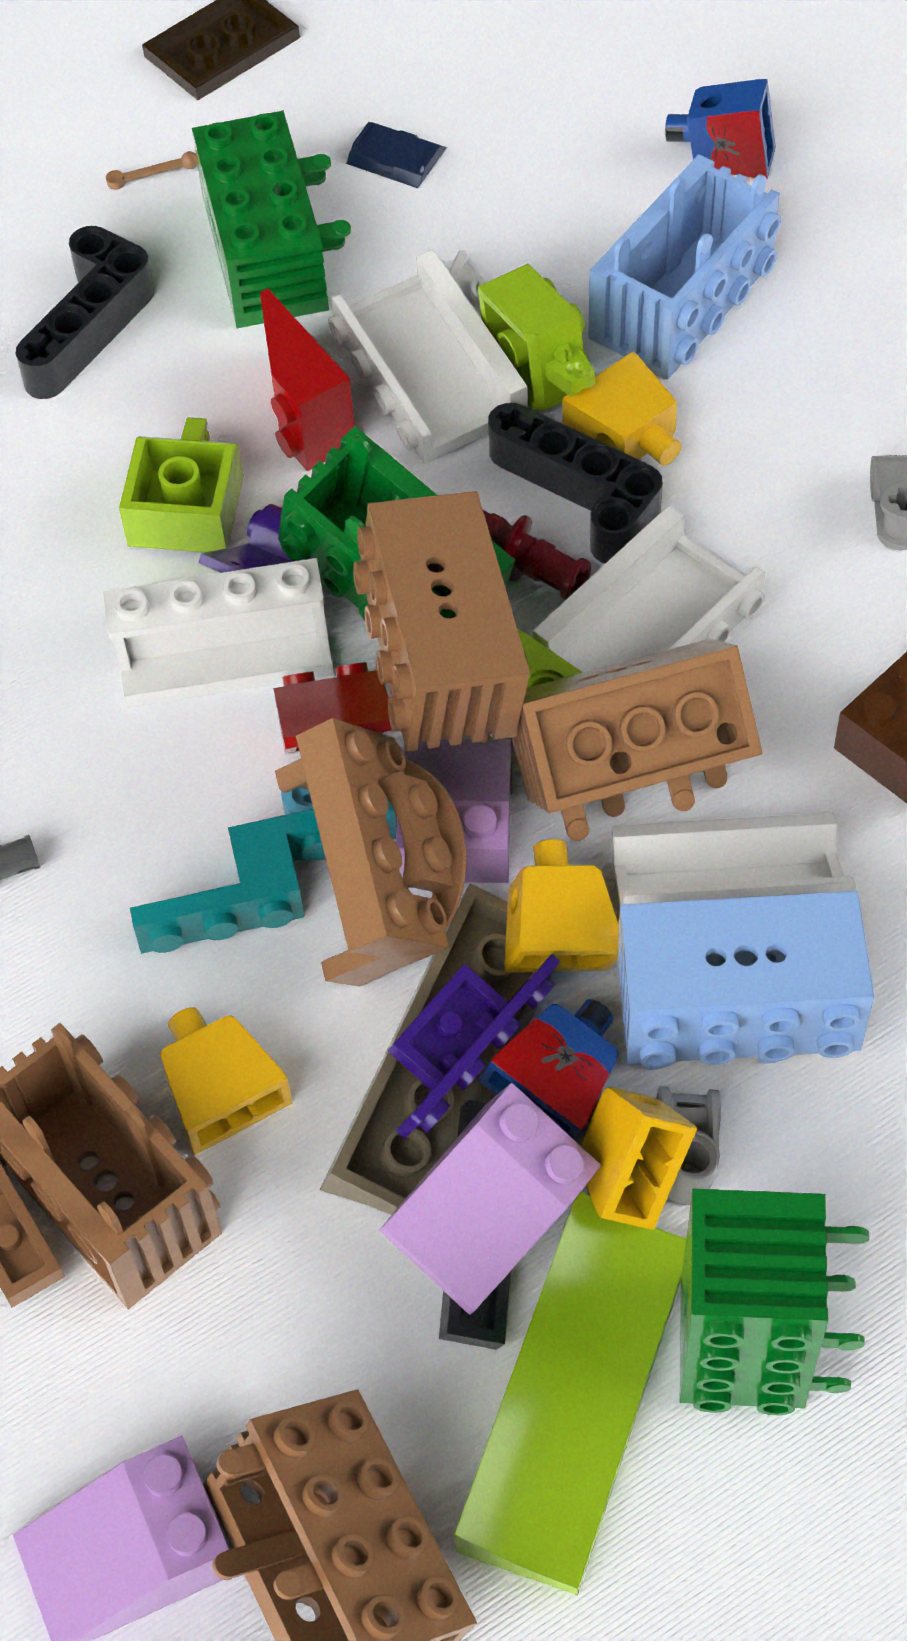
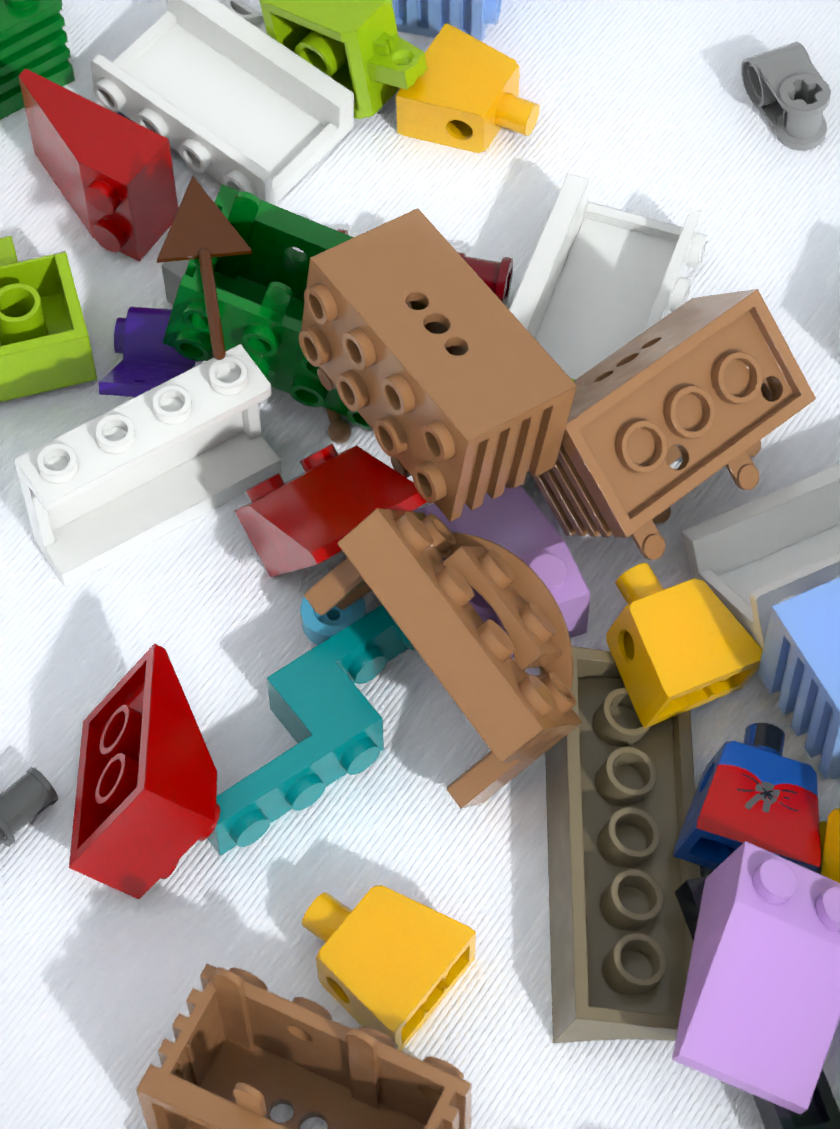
camera: 25 degrees left, 0 degrees up
(94, 876) = (141, 781): none -> red slope
(317, 460) = (201, 234): none -> reddish brown piece
(455, 1029) = (642, 812): dark purple bracket -> none
(611, 484) = (446, 168): black beam -> none

